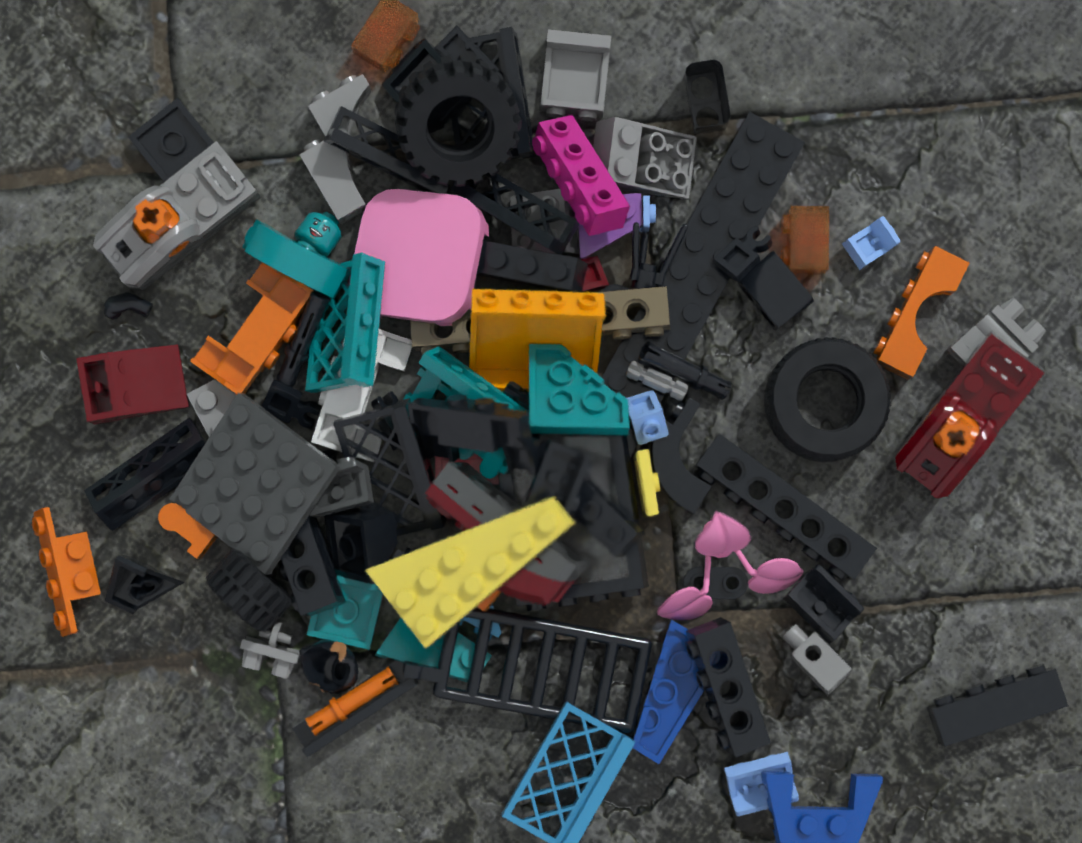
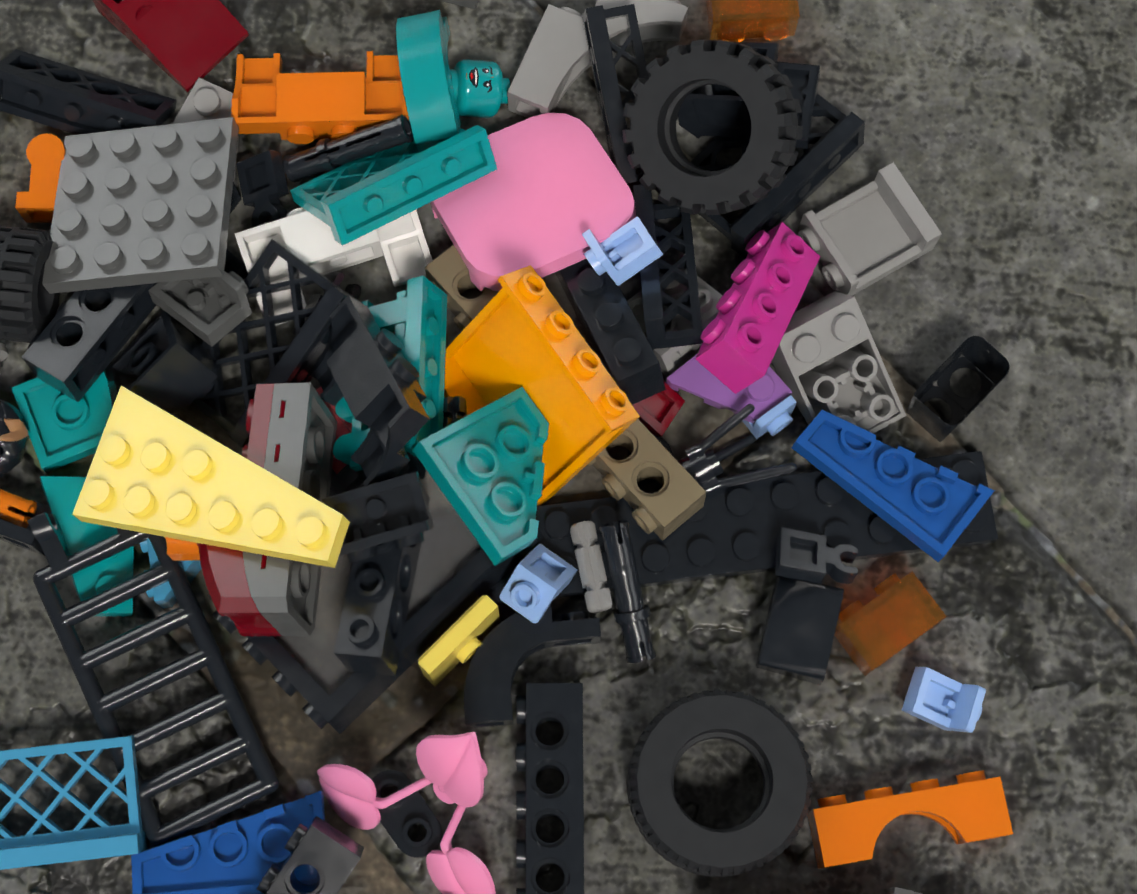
camera: 50 degrees right, 10 degrees down
(495, 228) = (623, 252): none -> light blue bracket
(736, 176) = (910, 495): none -> blue wing

